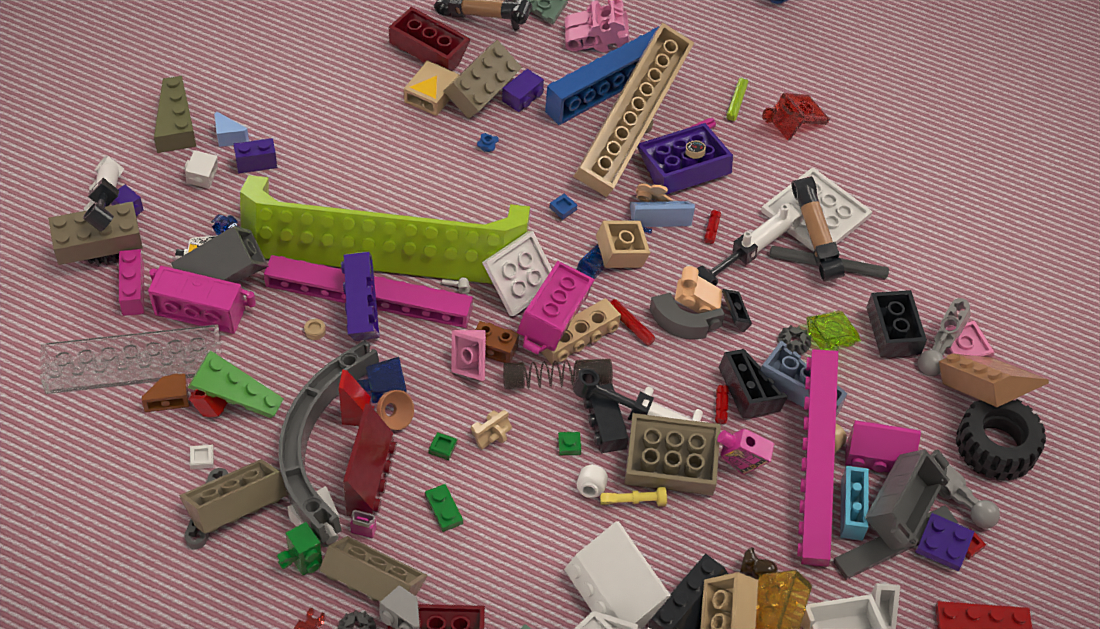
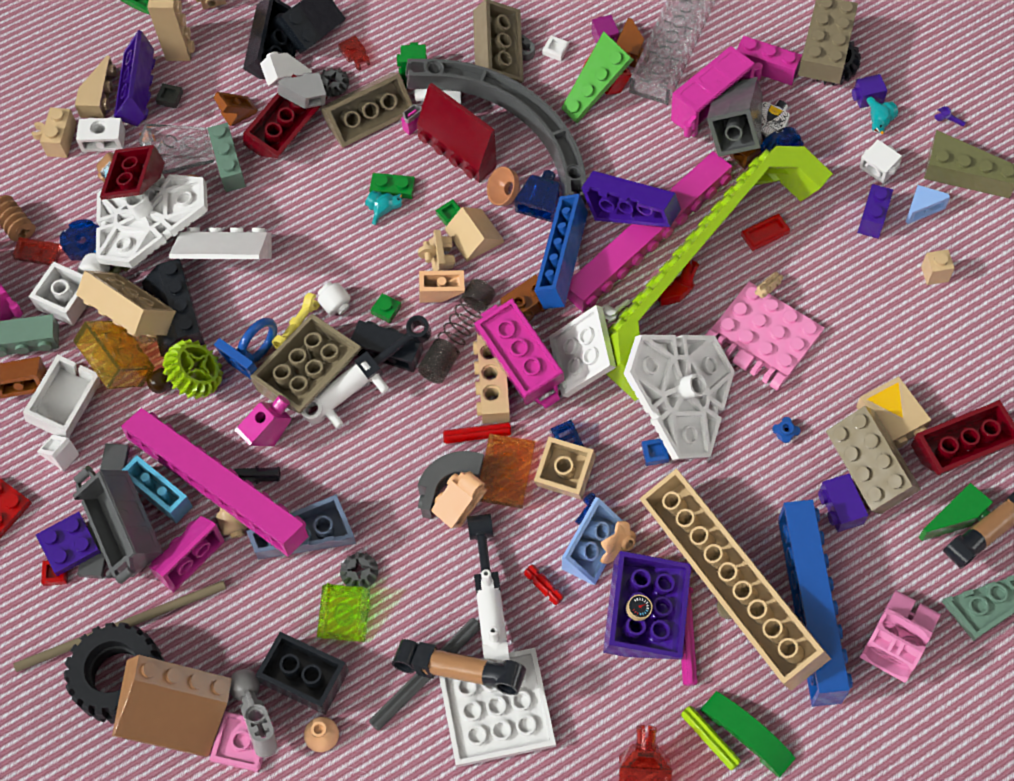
camera: 130 degrees right, 10 degrees up
(103, 193) = (874, 58): black piece -> none
(123, 148) = (946, 114): none -> dark purple hand
(149, 186) = (881, 114): none -> teal animal
(163, 420) = (605, 24): none -> magenta brick
(286, 103) = (937, 267): none -> tan brick
(315, 329) = (636, 174): tan tile -> none
(352, 399) = (526, 151): red slope -> none
(371, 192) = (768, 285): none -> tan axle
(416, 185) = (765, 333): none -> bright pink hinge
(438, 325) = (561, 251): none -> blue brick
(453, 415) = (473, 232): none -> tan slope
(468, 353) = (516, 268): bright pink slope -> none
(472, 499) = (382, 204): none -> teal animal
(485, 32) = (960, 513): none -> green slope
(510, 193) = (687, 384): none -> white plate
(527, 403) = (440, 285): none -> light nougat slope
(640, 285) = (506, 470): none -> clear orange plate
(703, 506) = (243, 359): none -> blue tile
(718, 85) = (749, 732): none -> green slope
(722, 404) = (336, 455): red axle -> none
(737, 309) = (424, 529): black slope -> none
(741, 537) = (190, 355): none -> lime gear
(749, 387) = (324, 478): black wedge -> none
(781, 448) = (259, 474): none -> black axle
(922, 298) = (321, 734): none -> light nougat brick
(983, 512) = (109, 595): light grey beam -> none
(984, 480) = (133, 620): none -> dark tan piece

